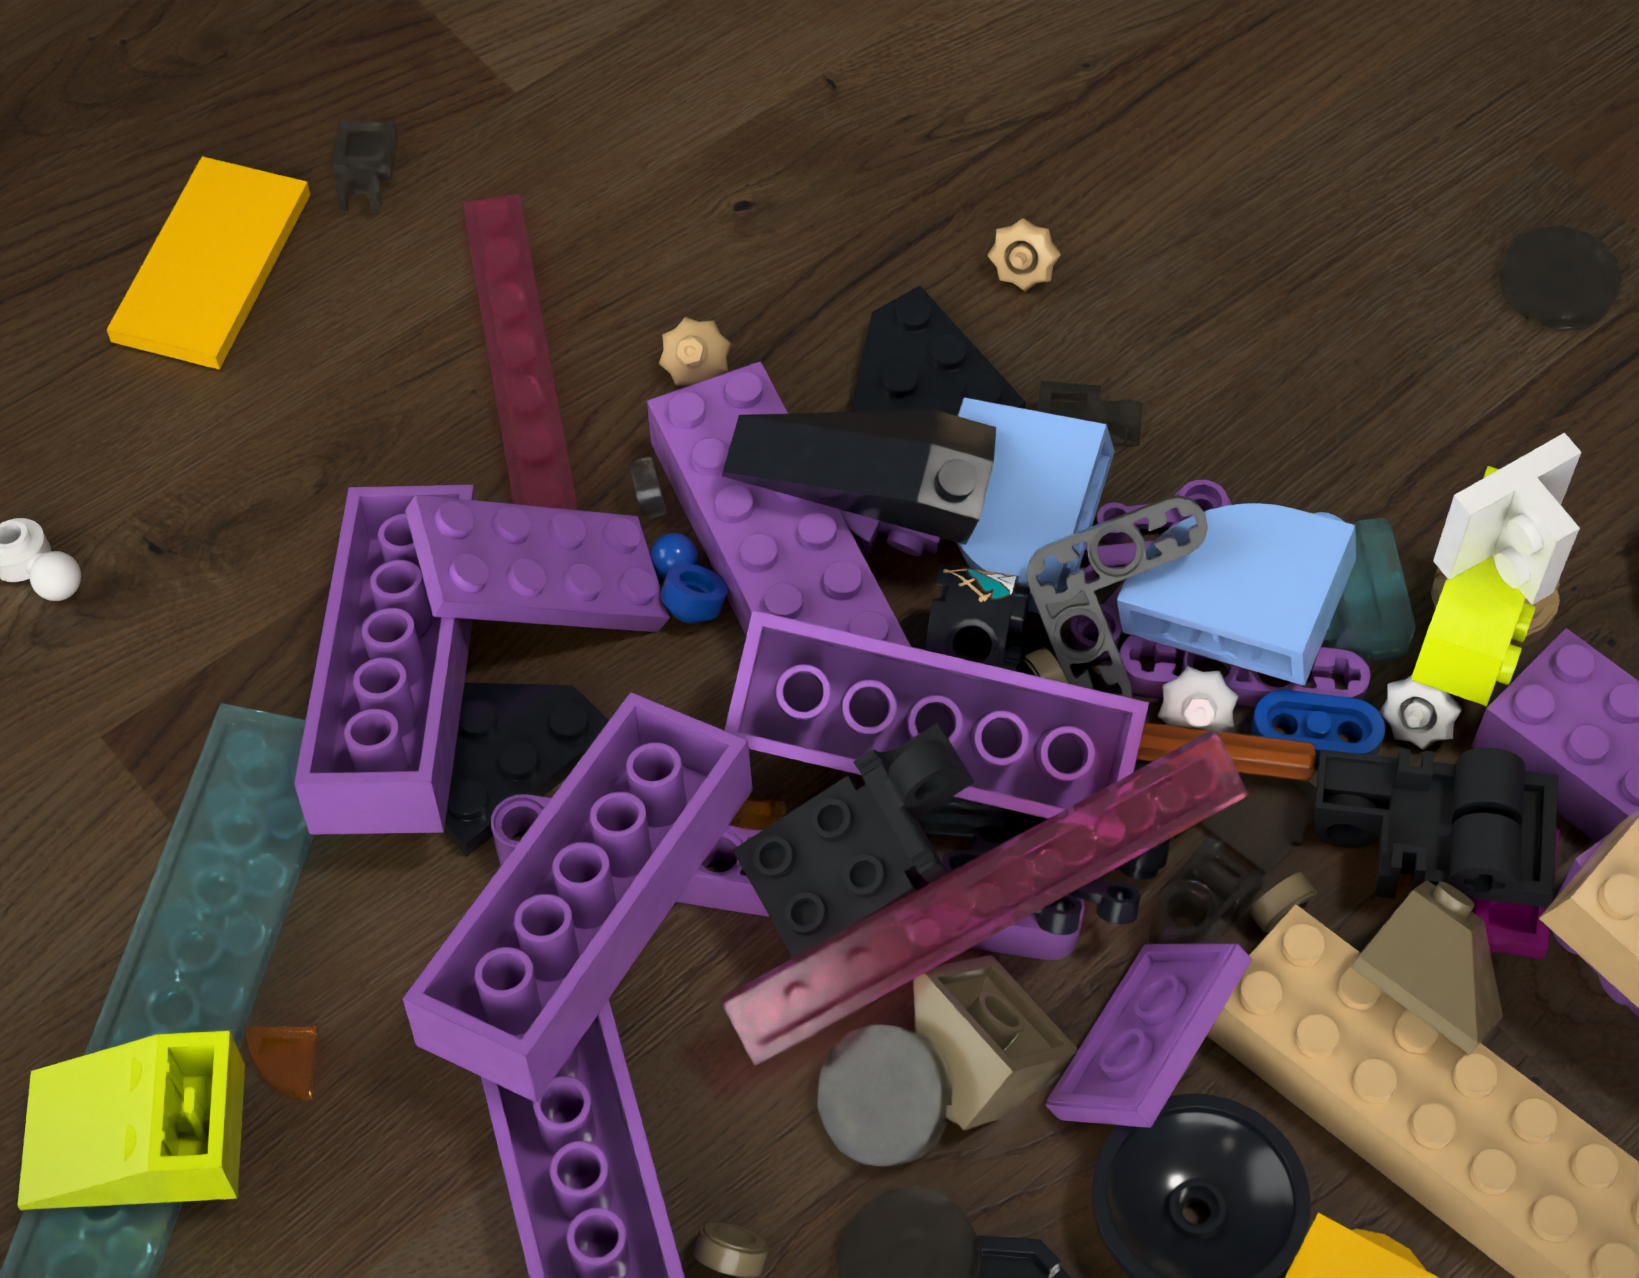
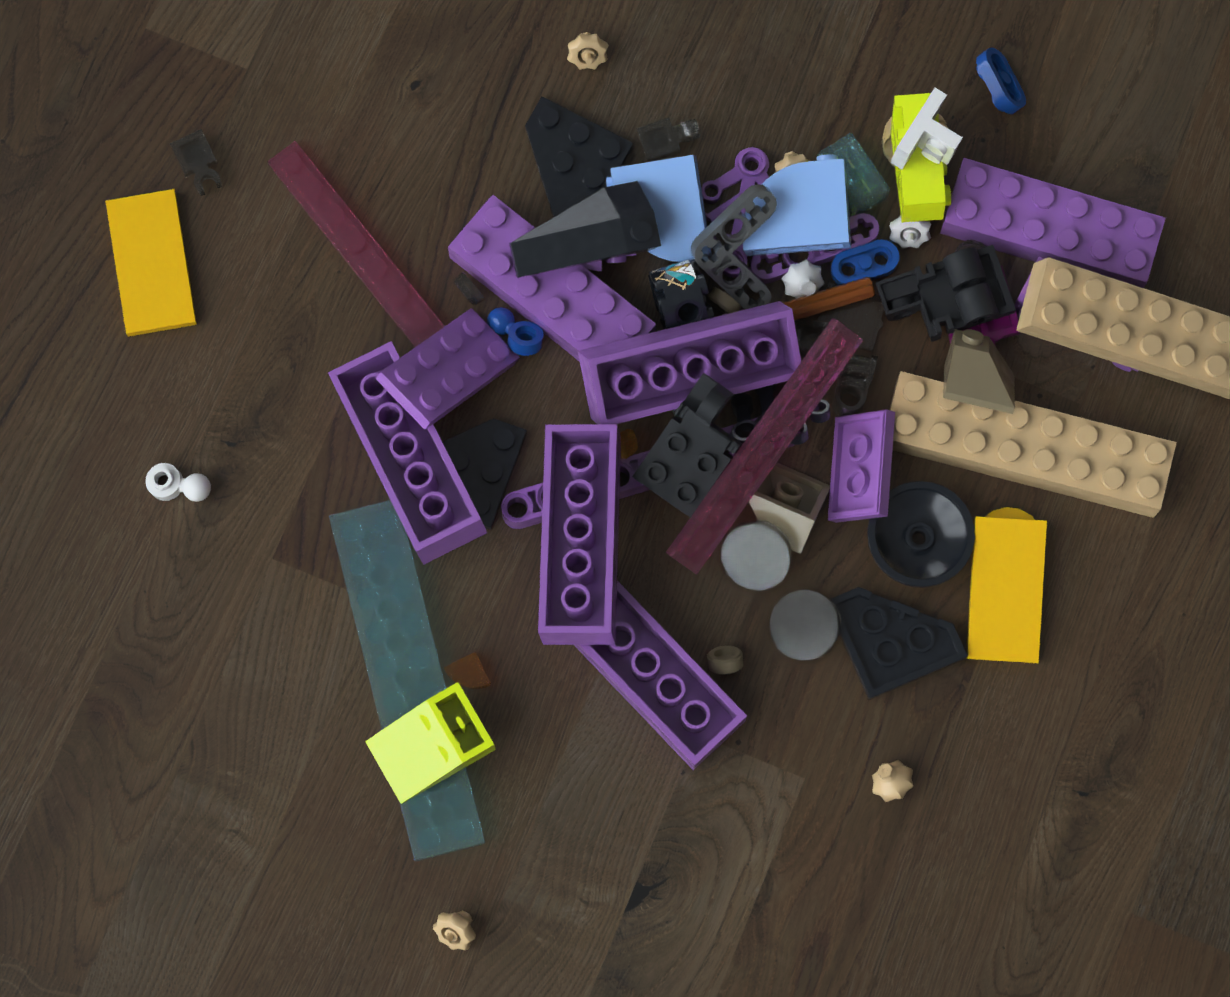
camera: 30 degrees left, 20 degrees up
(694, 352) = (447, 196): tan piece -> none
(1280, 899) = (890, 366): dark tan tile -> none

